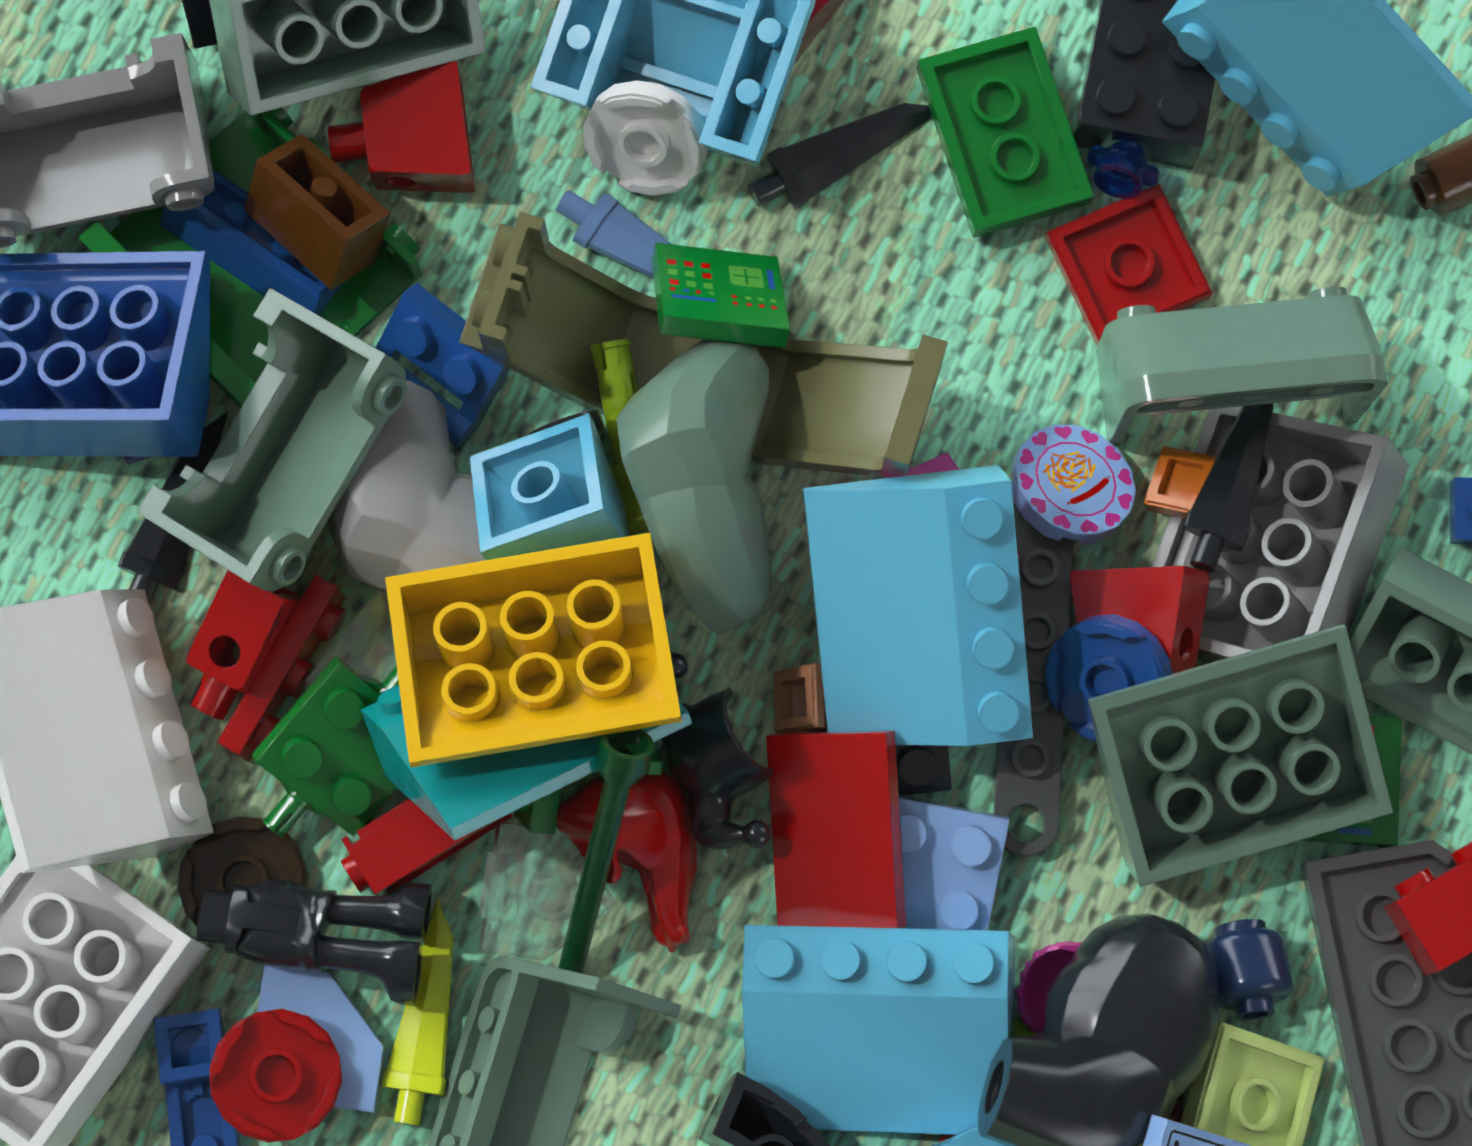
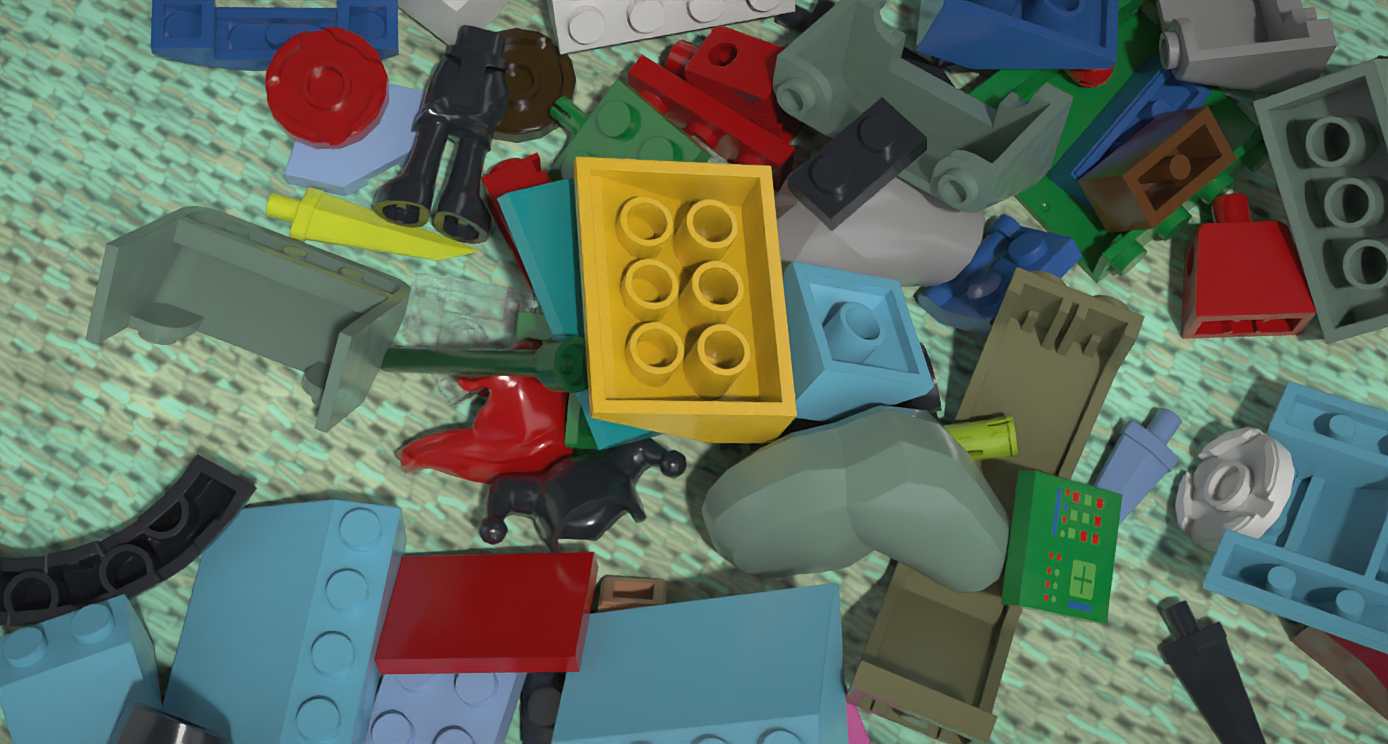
camera: 90 degrees right, 10 degrees down
(360, 498) = (857, 163): none -> black plate

